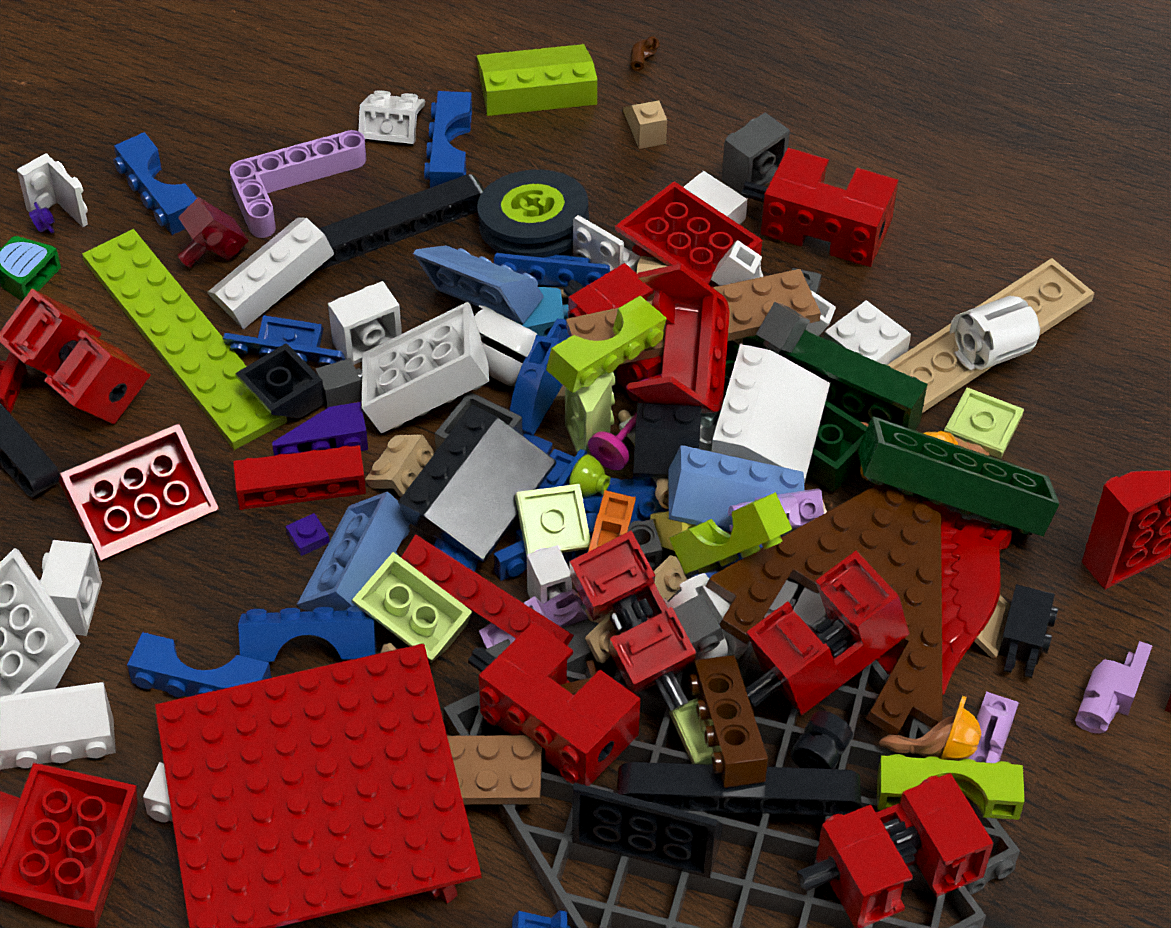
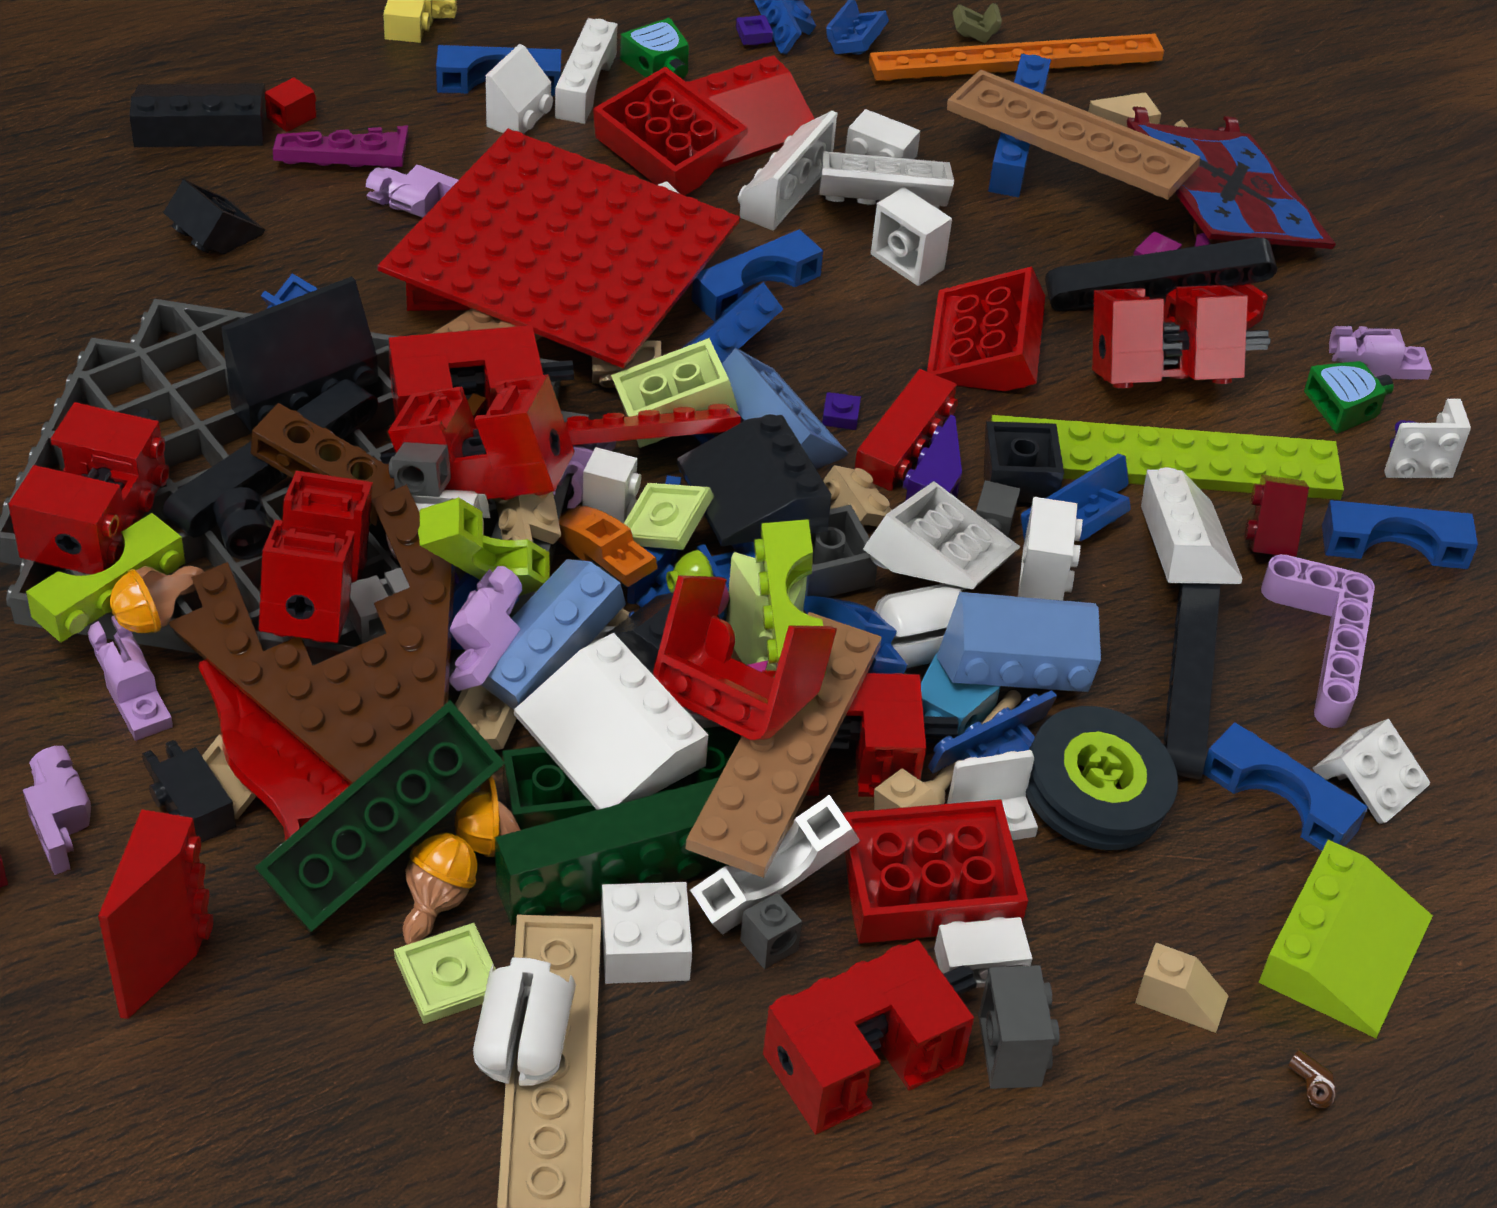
camera: 125 degrees right, 5 degrees down
(782, 328) = (691, 776): dark grey brick -> none

